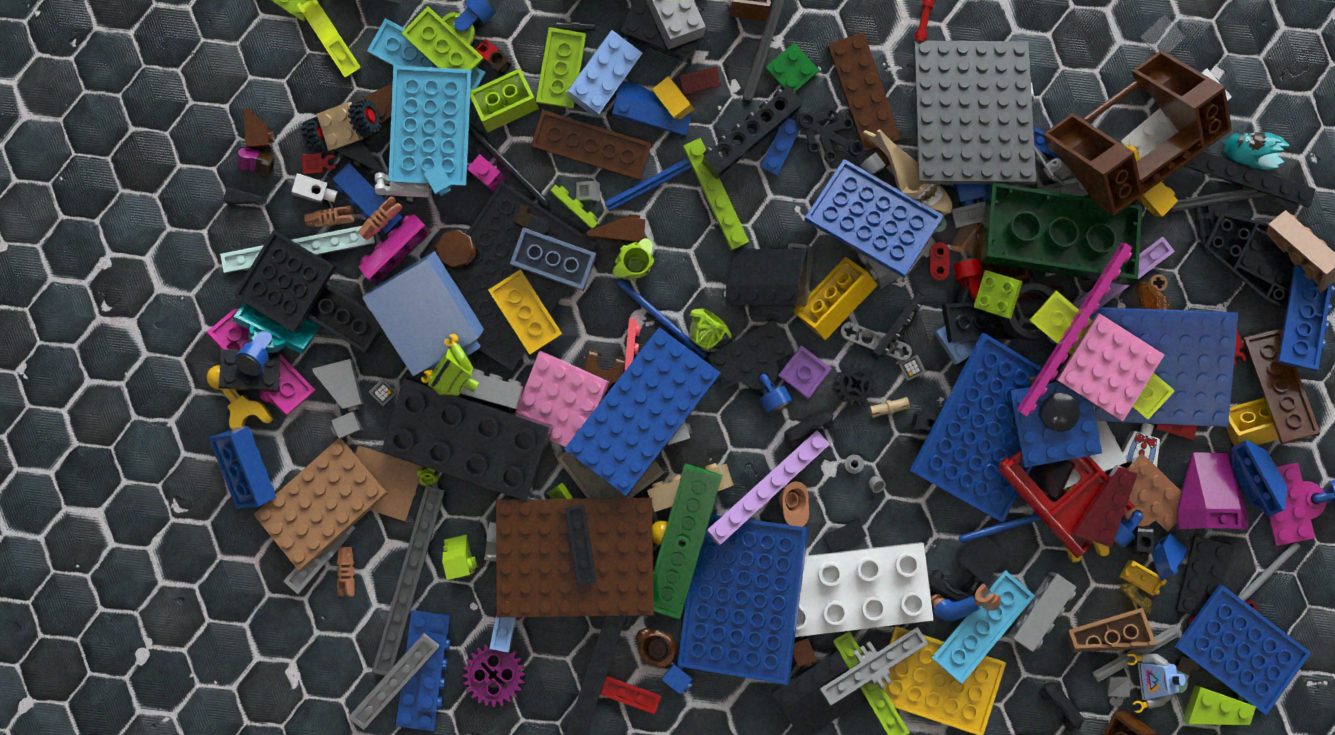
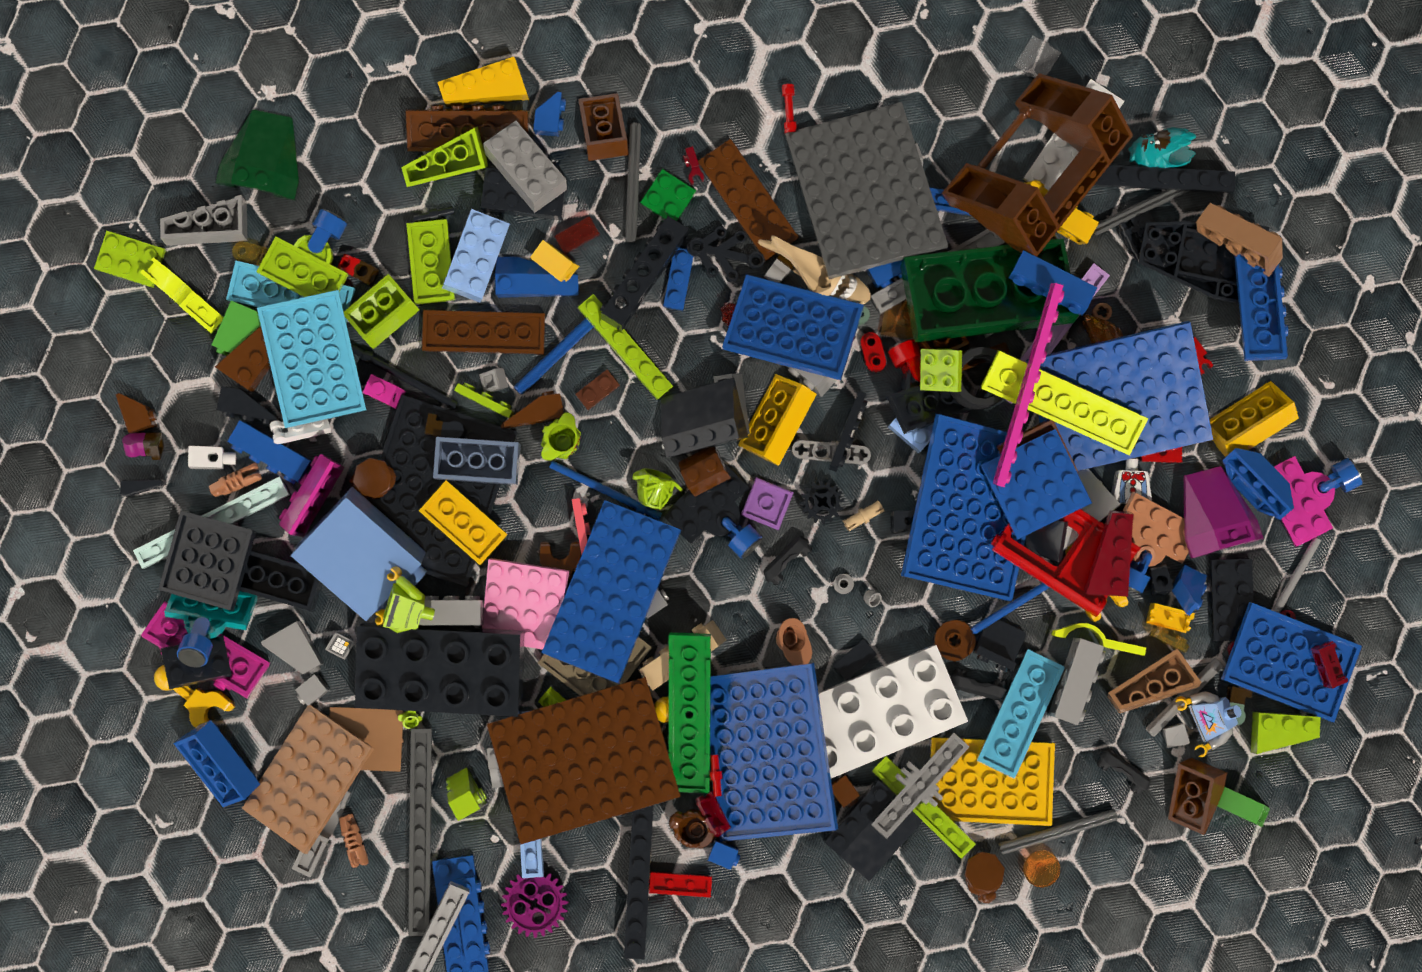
camera: 15 degrees left, 0 degrees up
(313, 163) = (204, 429): red plate -> none
(341, 126) = (220, 384): plate -> none
(368, 78) = (235, 327): none -> bright green slope
(380, 218) = (287, 468): nougat hinge -> none
(400, 16) = (251, 252): none -> clear yellow plate
(438, 180) = (336, 412): medium azure brick -> none
(580, 544) = (585, 746): black plate -> none
(679, 226) = (597, 390): none -> copper plate
(679, 643) = (715, 817): none -> dark red hinge
(690, 605) = (715, 775): none -> red bar
(756, 325) = (703, 470): none -> reddish brown slope
(767, 488) = (761, 633): lavender plate -> none
(817, 188) = (727, 311): none -> clear red plate
(823, 42) = (691, 160): none -> dark red plate
(912, 367) = (875, 468): slope -> none
(950, 538) = (964, 634): none -> reddish brown plate
(952, 611) = (985, 706): piece -> none
(1042, 563) = (1064, 631): none -> neon yellow piece
(1055, 168) = (962, 225): light grey hinge -> none
(1060, 412) = (1037, 473): black dish -> none
(1110, 367) = (1075, 413): bright pink plate -> none
(1112, 232) = (1039, 275): none -> blue brick
(1276, 661) = (1328, 665): none -> dark red hinge
(1281, 389) = (1256, 386): reddish brown plate -> none

